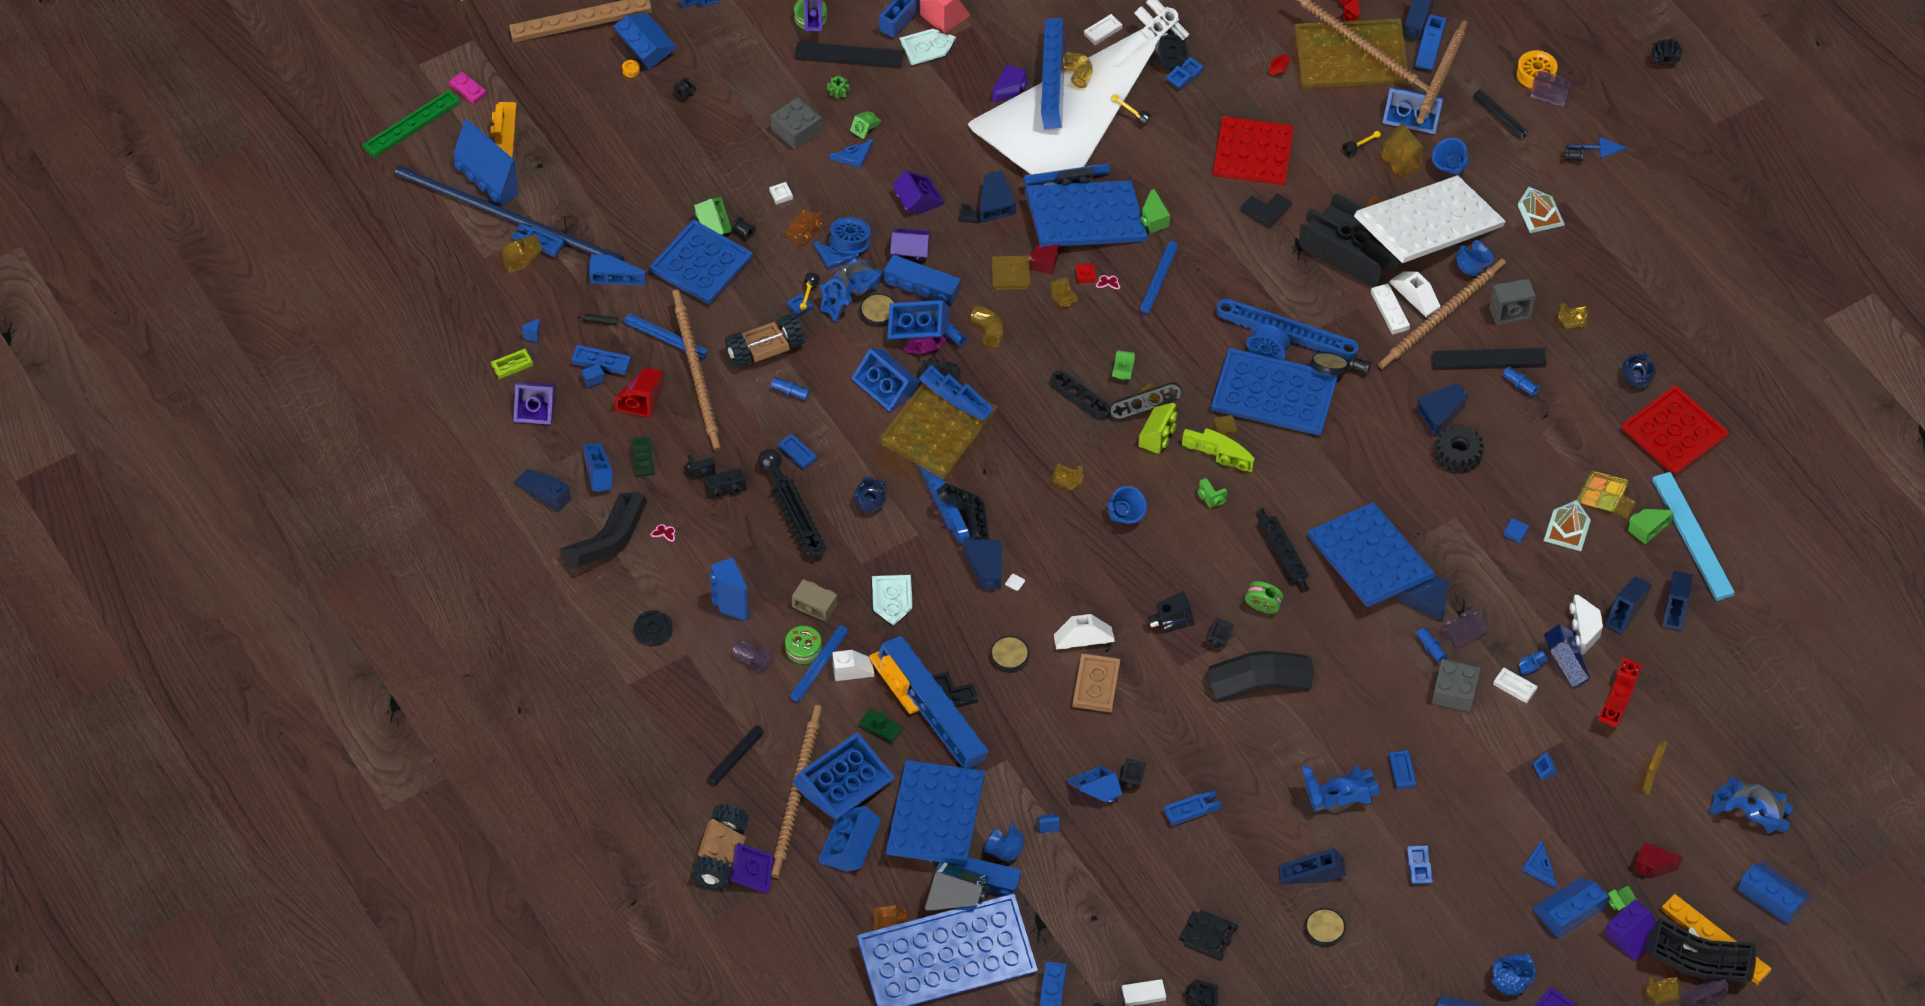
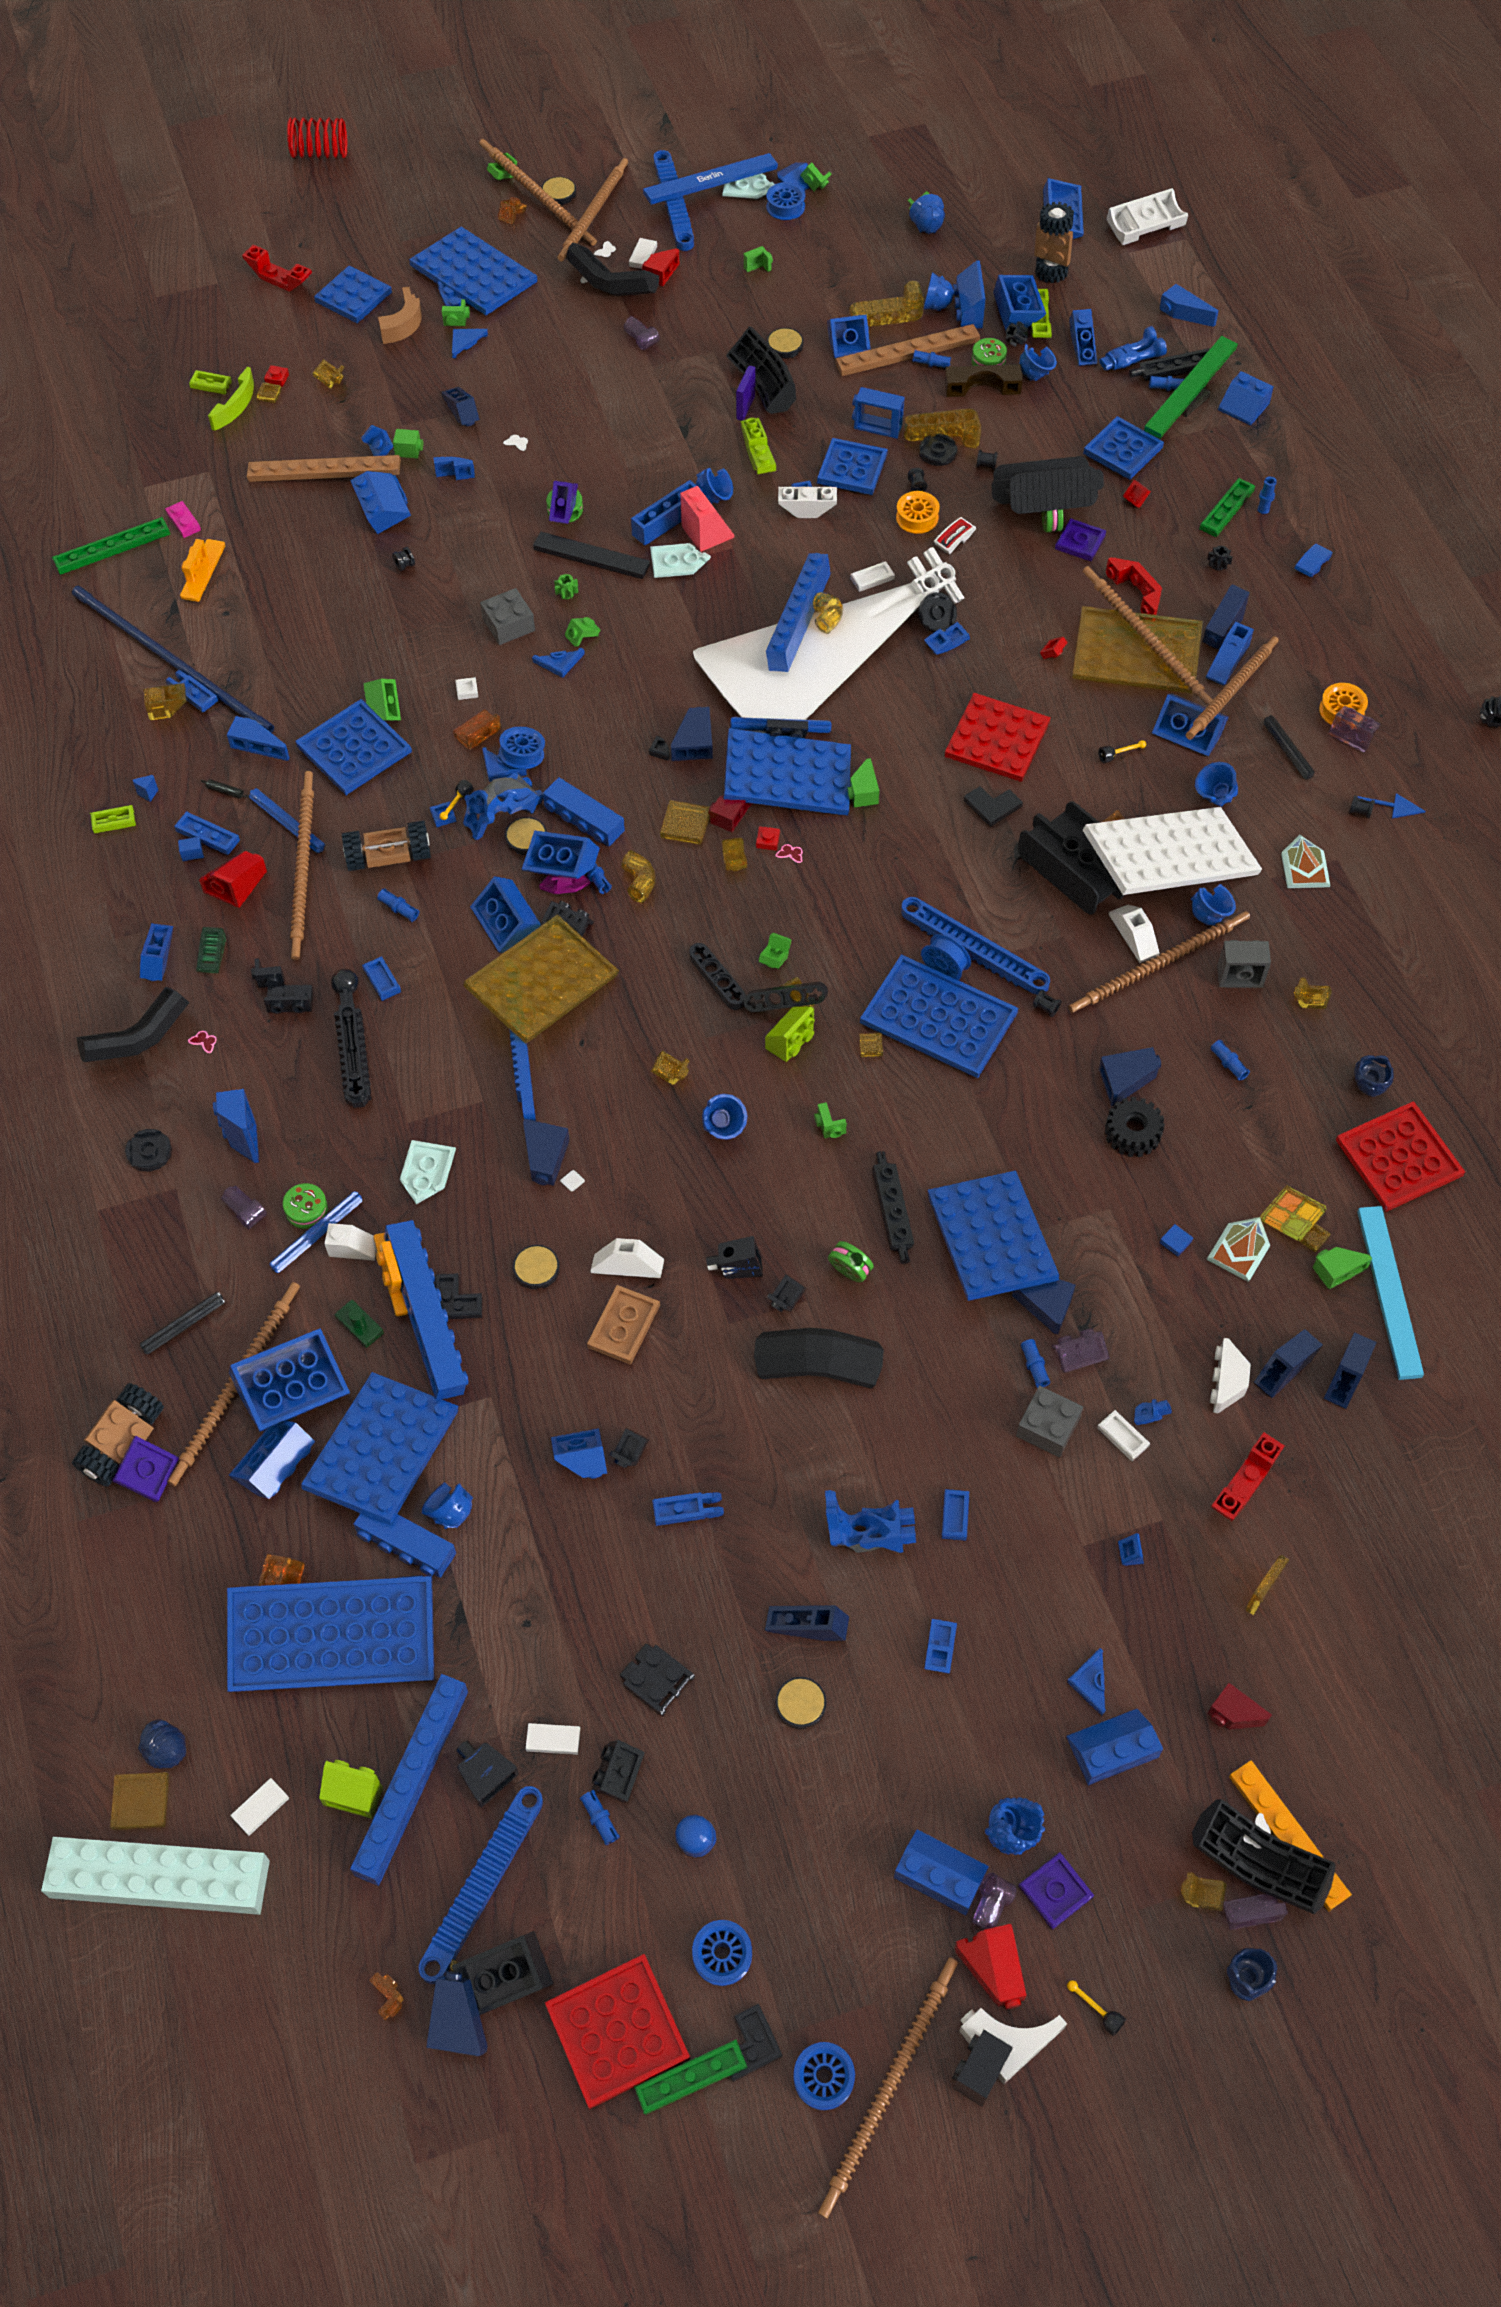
camera: 15 degrees right, 5 degrees up
(486, 164) = (161, 601): blue slope -> none
(534, 402) = (117, 865): dark purple slope -> none
(545, 488) = (92, 965): dark blue slope -> none
(630, 68) = (358, 529): light orange tile -> none
(743, 228) = (410, 716): black bush -> none
(814, 600) = (336, 1155): dark tan brick -> none
(868, 497) = (439, 1045): dark blue hair -> none
(910, 243) = (584, 768): slope -> none
(917, 192) = (611, 714): dark purple slope -> none
(956, 888) = (365, 1553): slope -> none
(960, 396) = (572, 947): blue slope -> none
(971, 504) = (545, 1079): black beam -> none
(1009, 83) = (750, 616): dark purple slope -> none
(1048, 823) = (511, 1488): blue slope -> none
(1141, 116) = (884, 677): hinge -> none
(1158, 277) = (847, 858): blue axle -> none
(1226, 450) = (860, 1072): lime slope -> none
(1330, 363) = (1011, 995): tile -> none
(1390, 309) = (1100, 945): white plate -> none
(1403, 151) = (1164, 768): clear yellow slope -> none
(1489, 358) = (1200, 1025): black tile -> none
(1567, 654) = (1196, 1411): clear blue slope -> none
(1621, 898) = (1181, 1754): bright green bracket -> none
(1631, 929) = (1183, 1798): dark purple slope -> none
(1769, 803) = (1399, 1664): blue hips -> none
(1773, 892) = (1380, 1786): blue slope -> none

